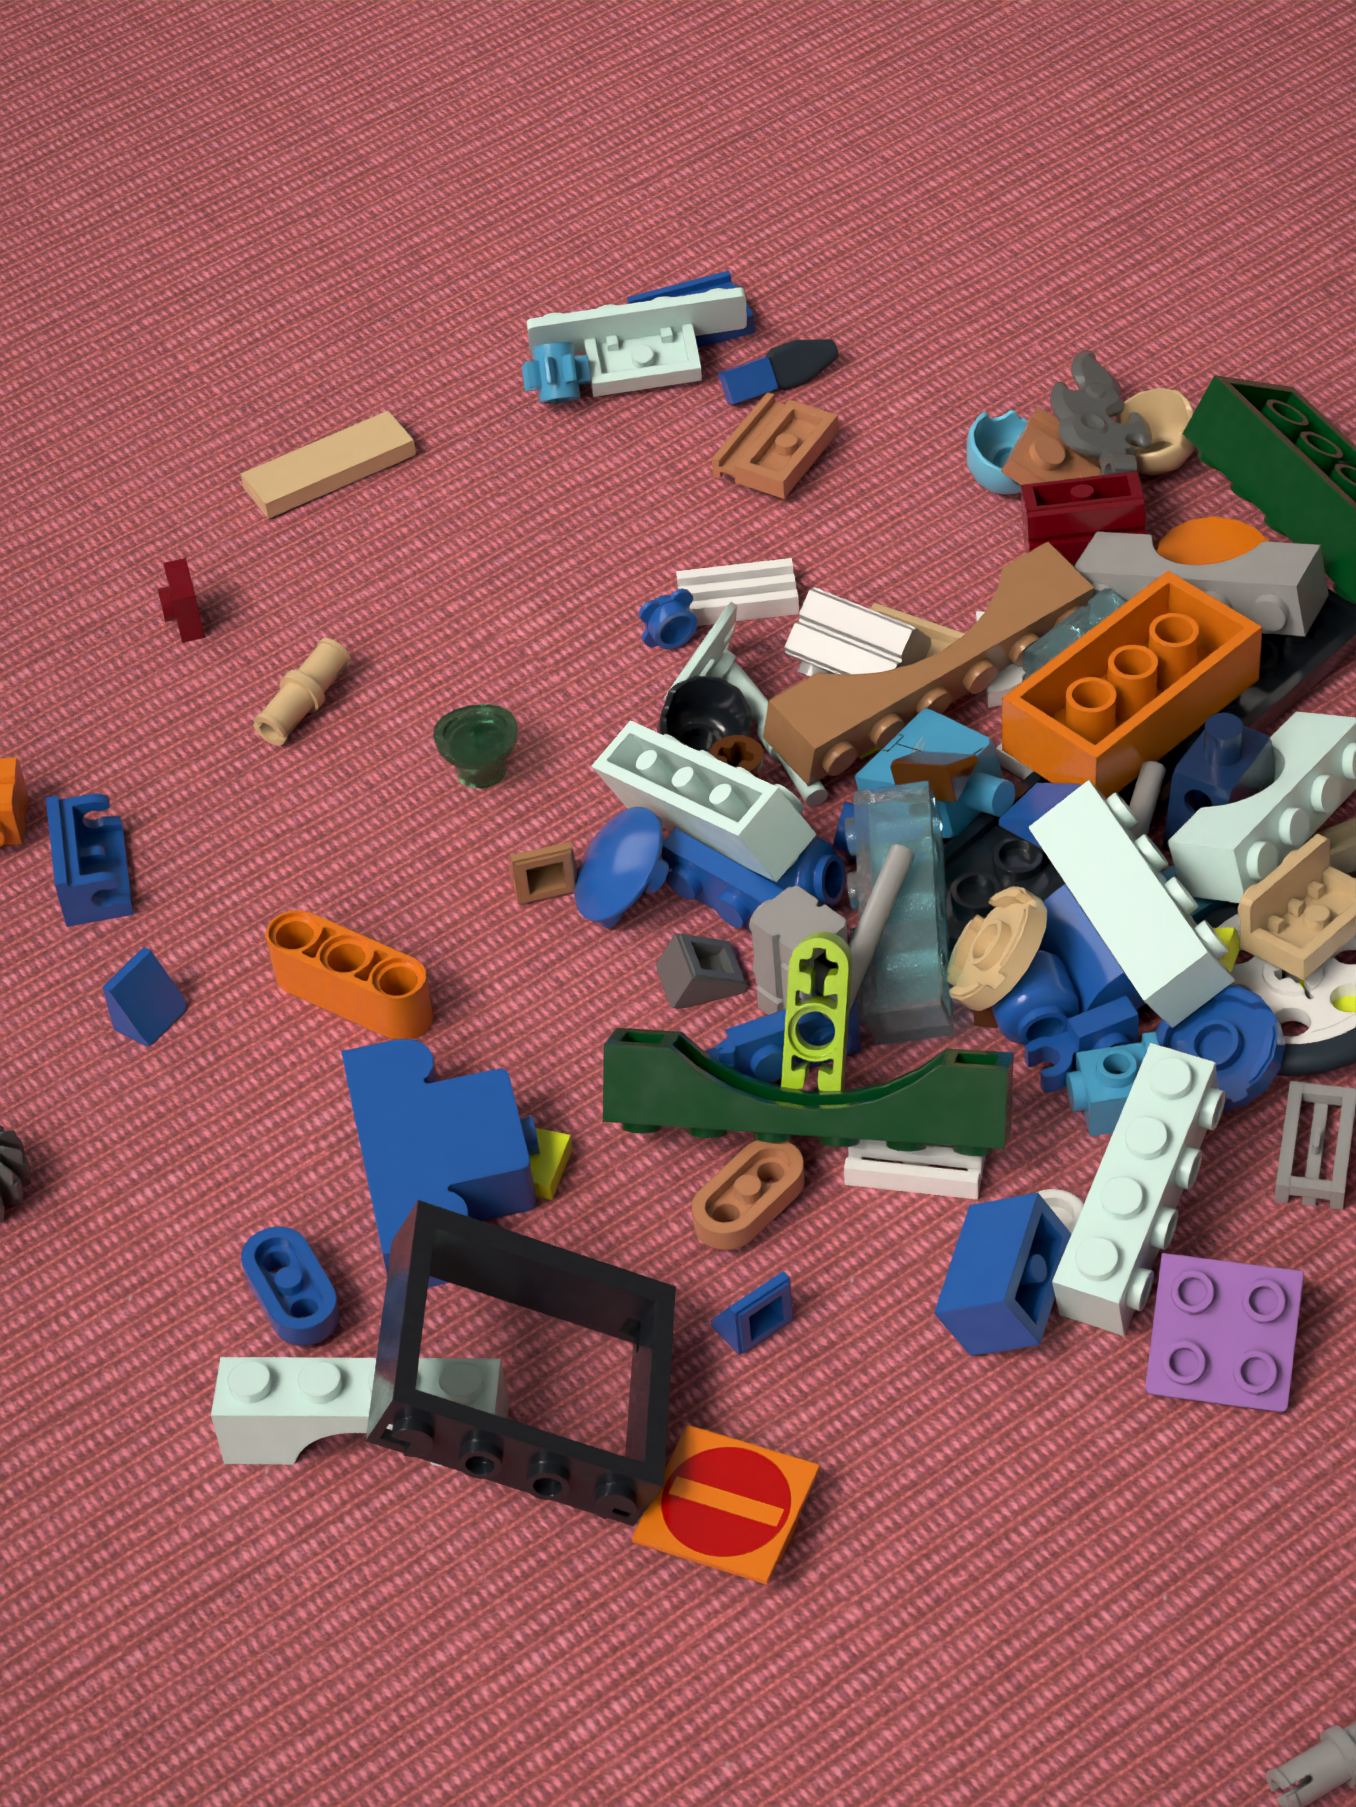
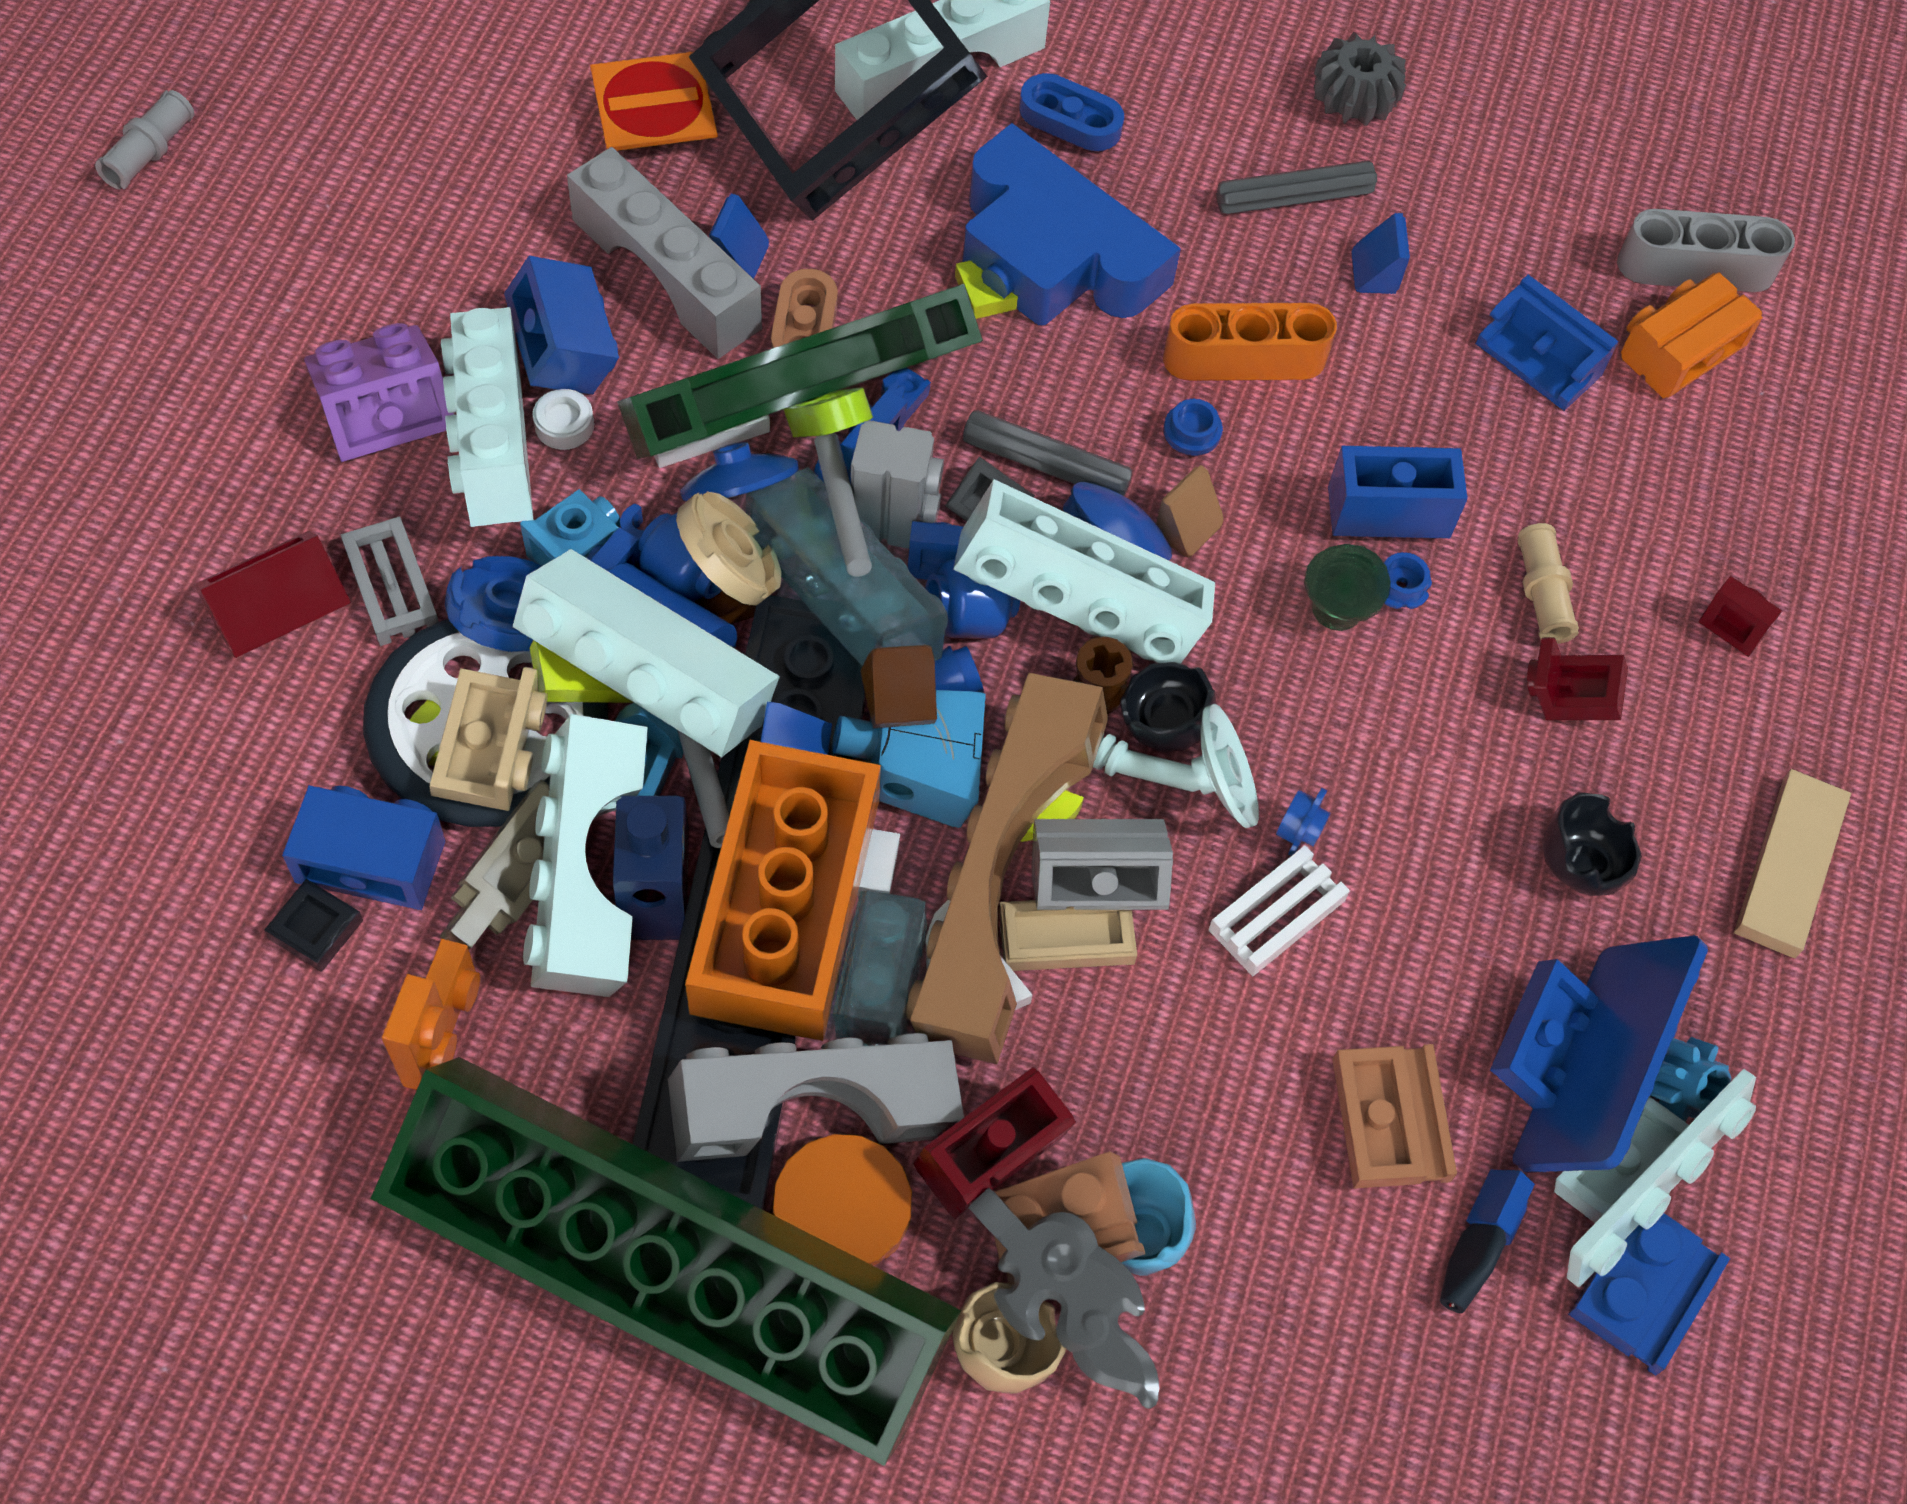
camera: 135 degrees right, 15 degrees up
(146, 1110) = (1296, 187): none -> dark grey axle
(361, 612) = (1577, 684): none -> dark red bracket
(362, 781) = (1397, 491): none -> blue brick
(413, 745) = (1412, 572): none -> blue plate
(468, 938) = (1193, 427): none -> blue plate
(474, 514) = (1590, 846): none -> black hair
(600, 397) = (1594, 1050): none -> blue bracket
(616, 973) = (1044, 453): none -> dark grey axle
(843, 1318) = (706, 286): none -> light grey arch
(924, 1013) = (739, 472): none -> blue dish

